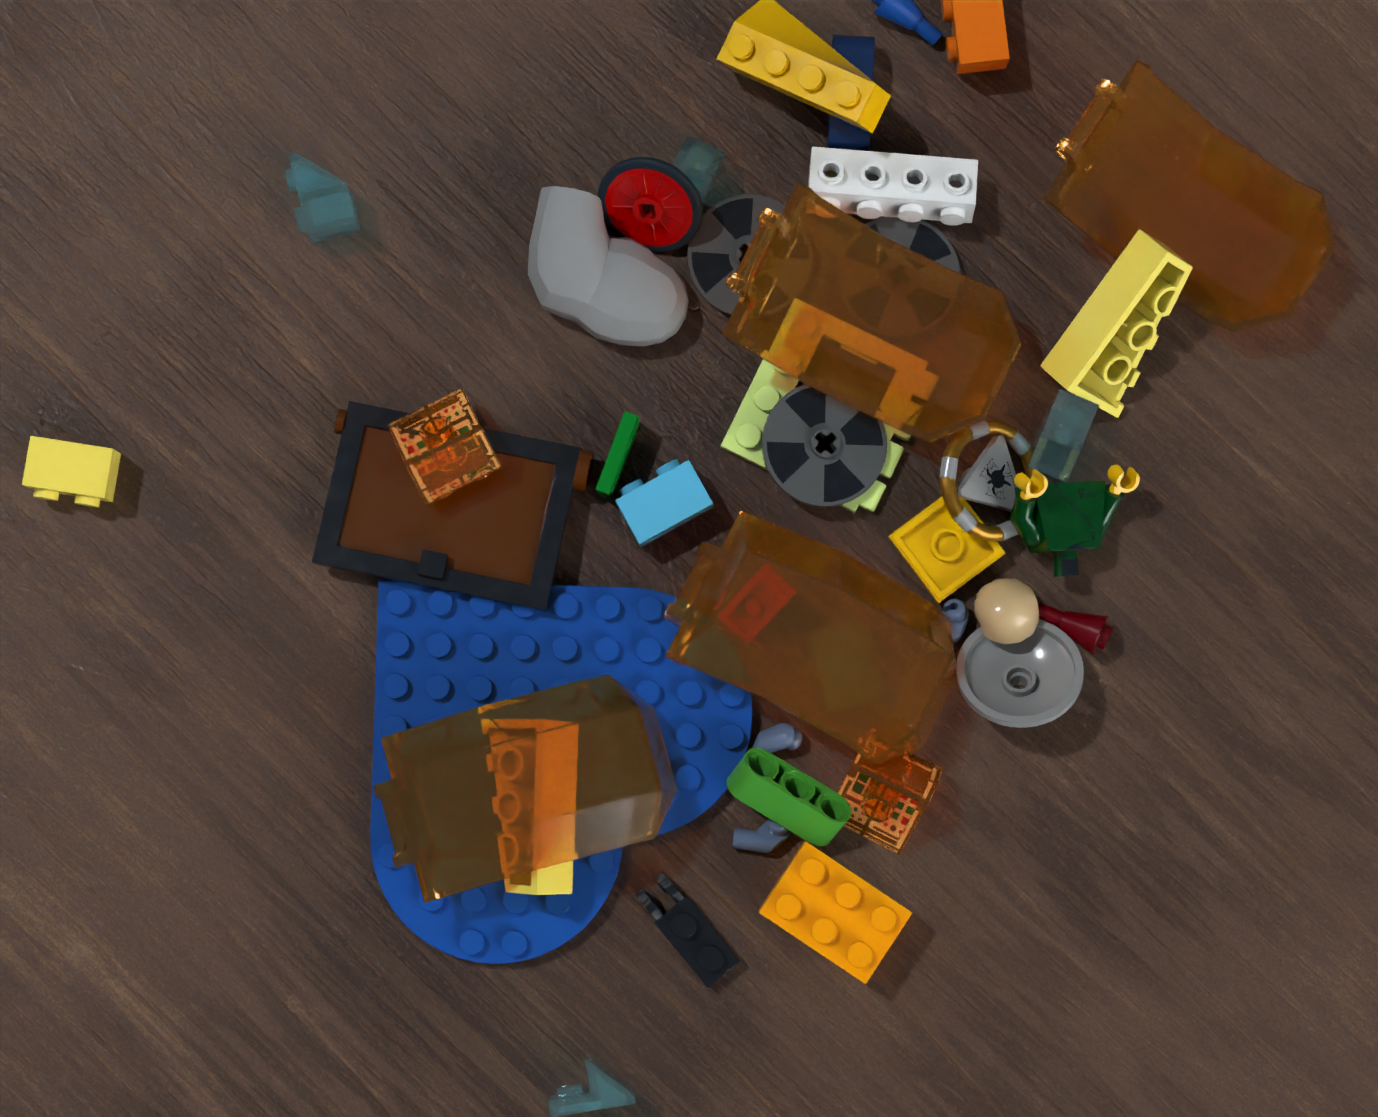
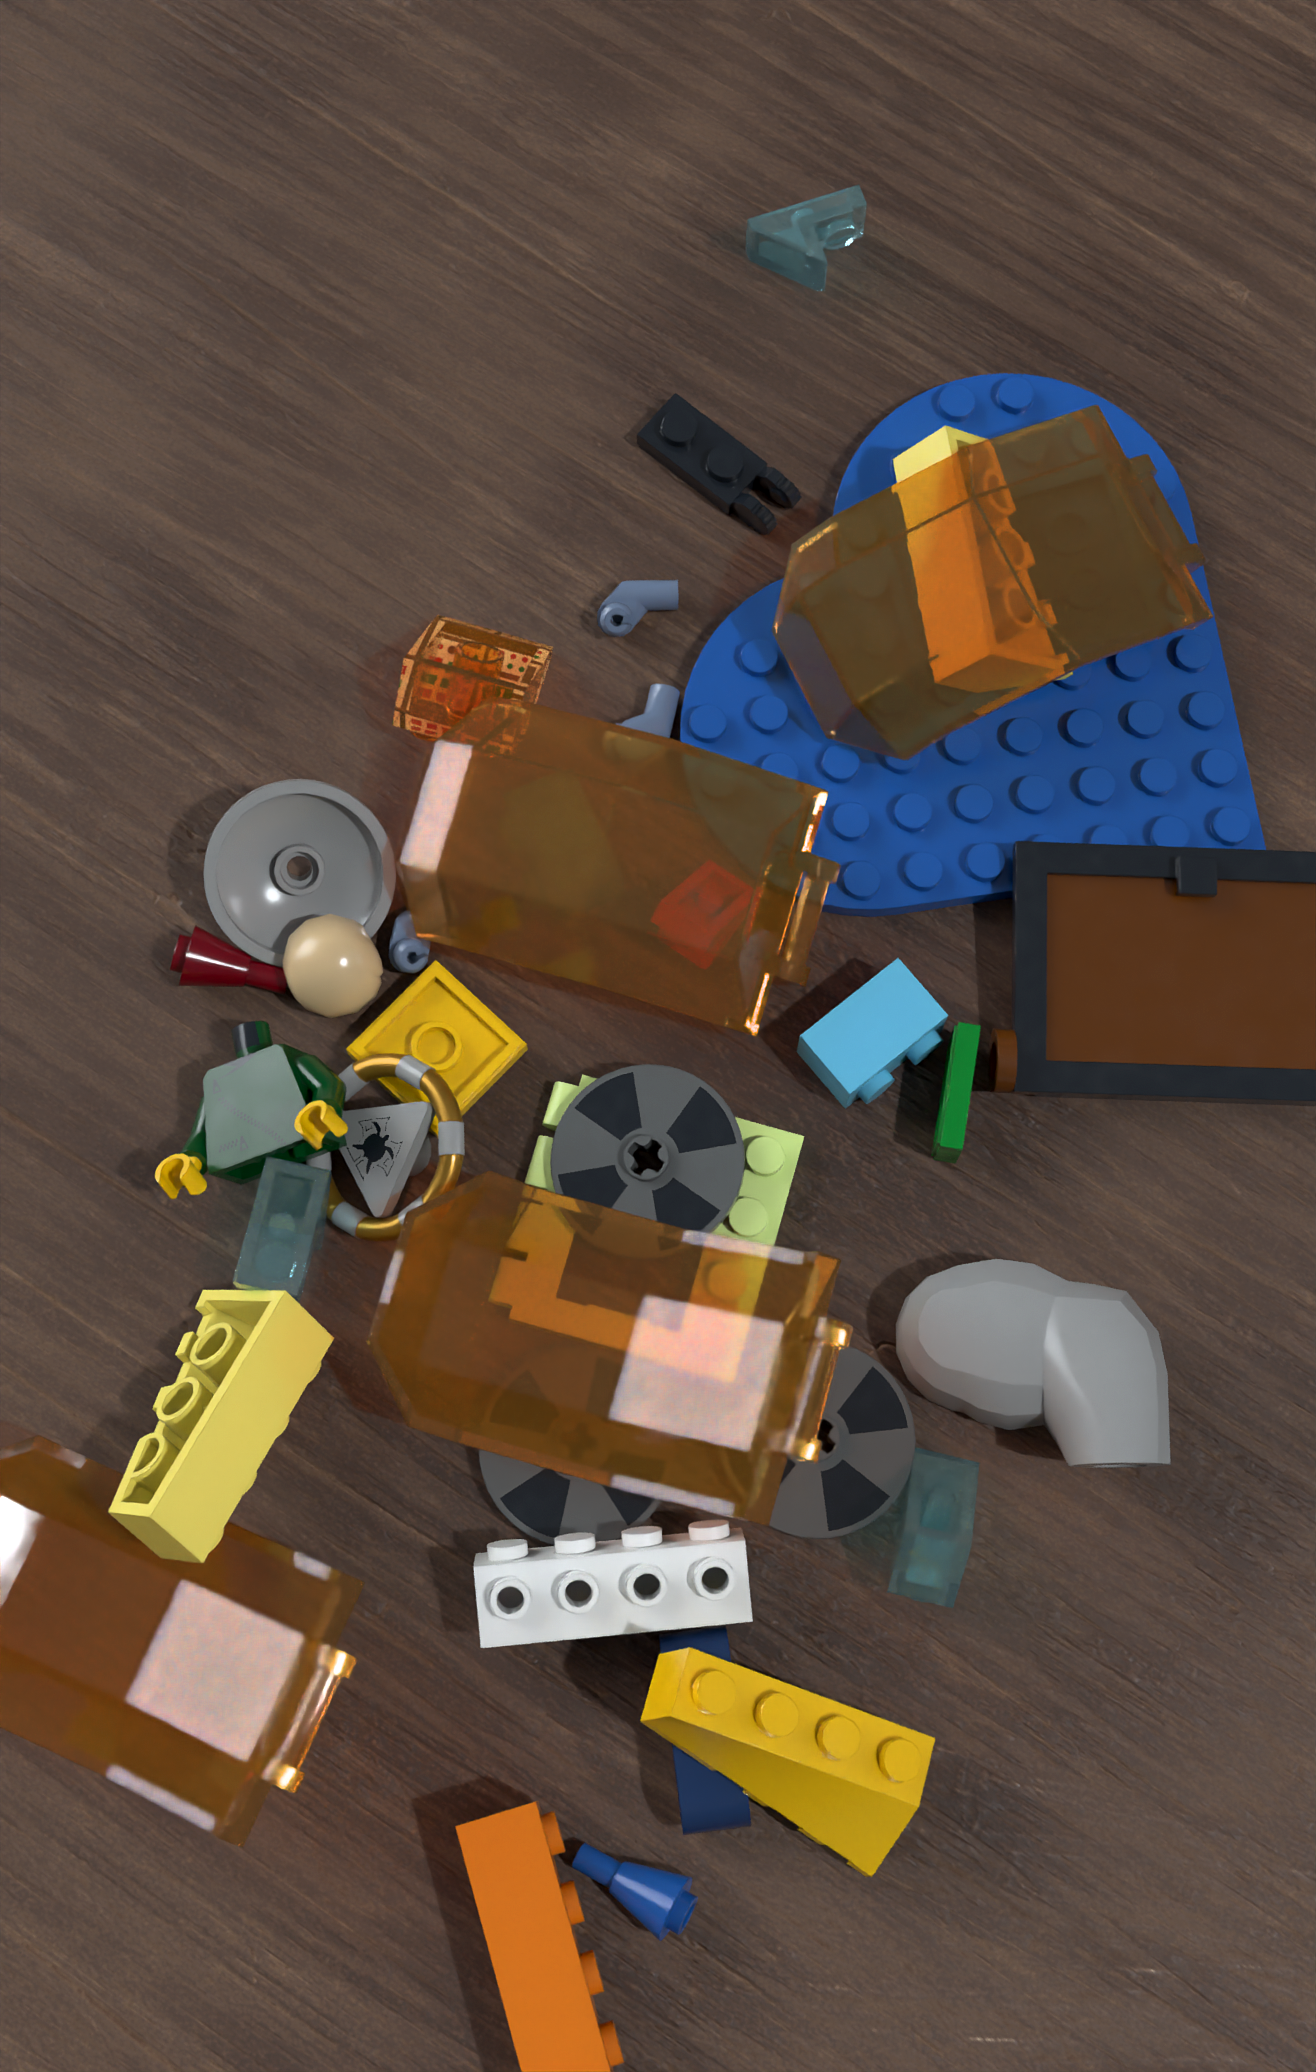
camera: 165 degrees right, 10 degrees down
(444, 446) = (1224, 1047): clear orange slope -> none
(643, 181) = (990, 1481): red wheel -> none
(788, 796) = (583, 655): bright green beam -> none
(835, 912) = (516, 512): light orange brick -> none

